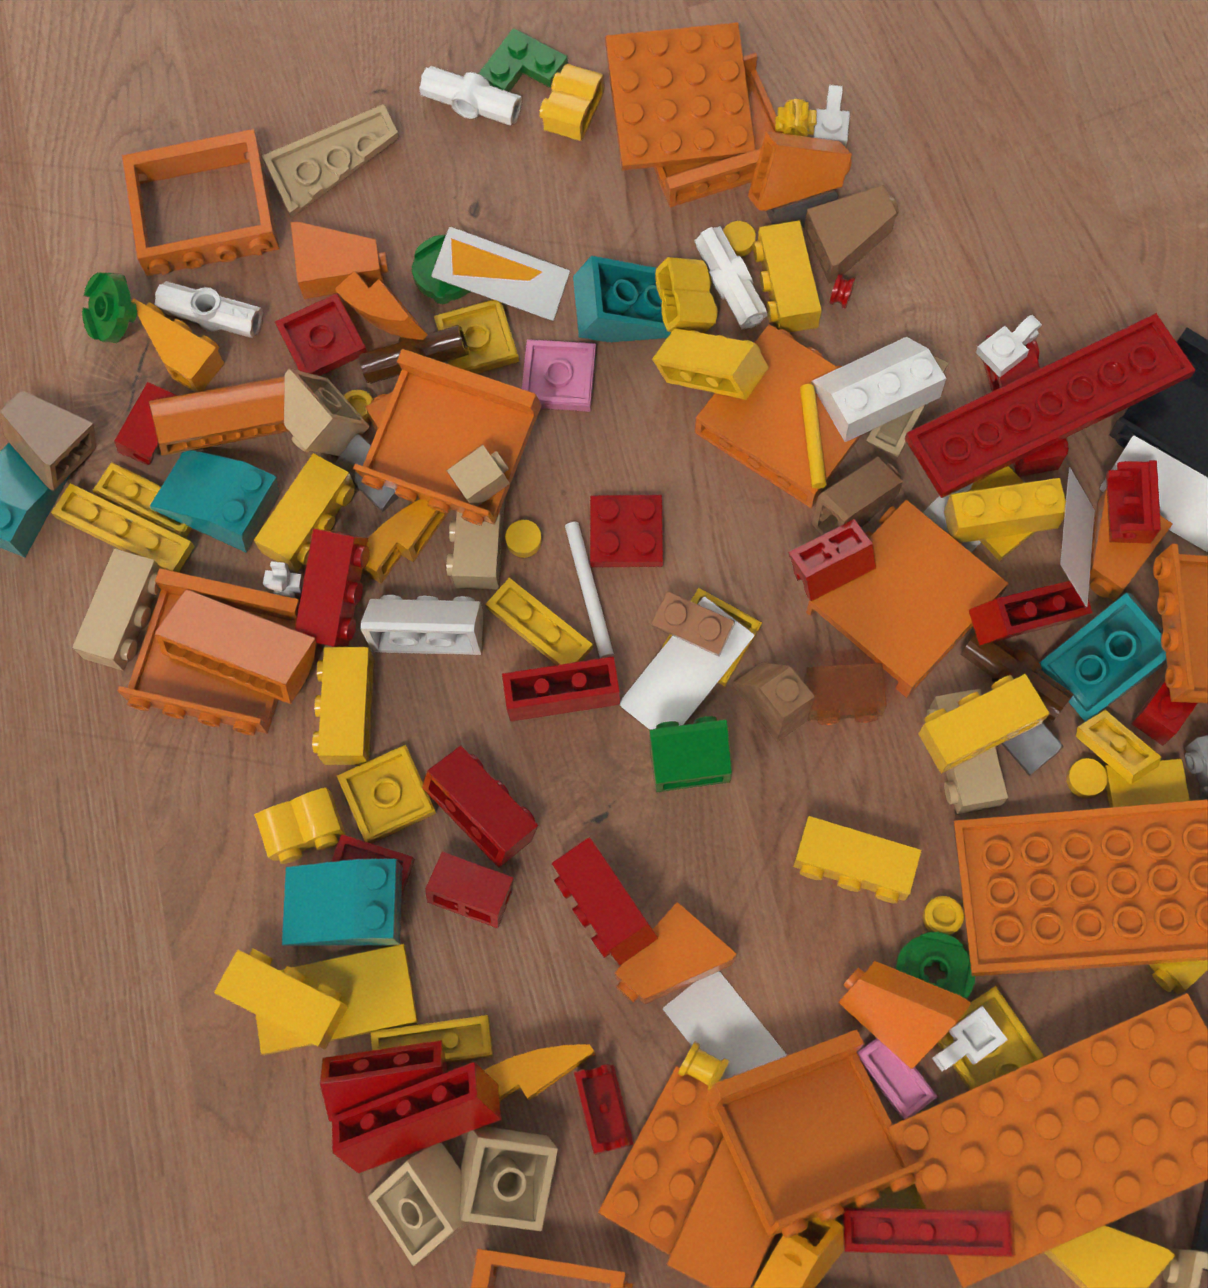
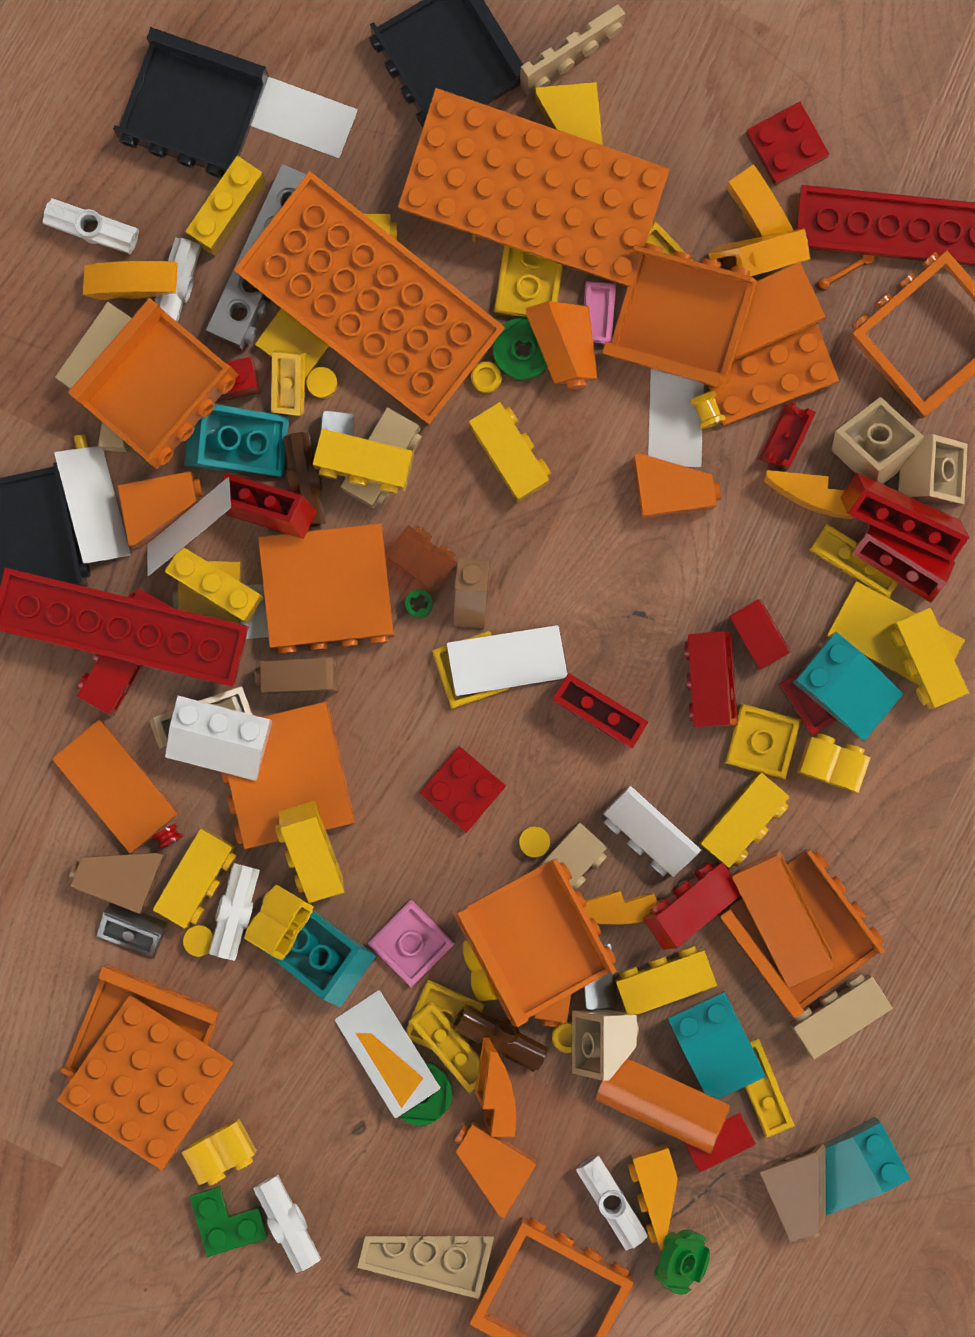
camera: 140 degrees left, 15 degrees up
(122, 528) = (795, 1077): yellow plate -> none
(282, 582) = (720, 938): white plate -> none
(321, 336) = (551, 1111): red plate -> none
(476, 319) = (447, 1044): none -> yellow tile
(479, 475) = (539, 891): tan brick -> none
(538, 624) = (576, 770): yellow plate -> none
(589, 590) = (521, 769): white bar -> none
(602, 902) = (688, 553): red brick -> none
(690, 754) = (556, 599): green slope -> none
(693, 623) = (479, 682): nougat plate -> none
(796, 118) = (78, 995): yellow gear -> none
(797, 169) = (116, 951): orange slope -> none
(813, 436) = (290, 741): yellow bar -> none
(816, 643) = (415, 595): none -> green bush
(832, 122) = (52, 975): white plate -> none
(833, 559) = (358, 643): red hinge -> none
(923, 297) = (115, 786): none -> orange tile
(929, 1231) = (662, 210): red tile -> none
(973, 1037) = (537, 290): white plate -> none
(1007, 349) = (108, 692): white plate -> none
(1133, 502) = (132, 517): red hinge -> none

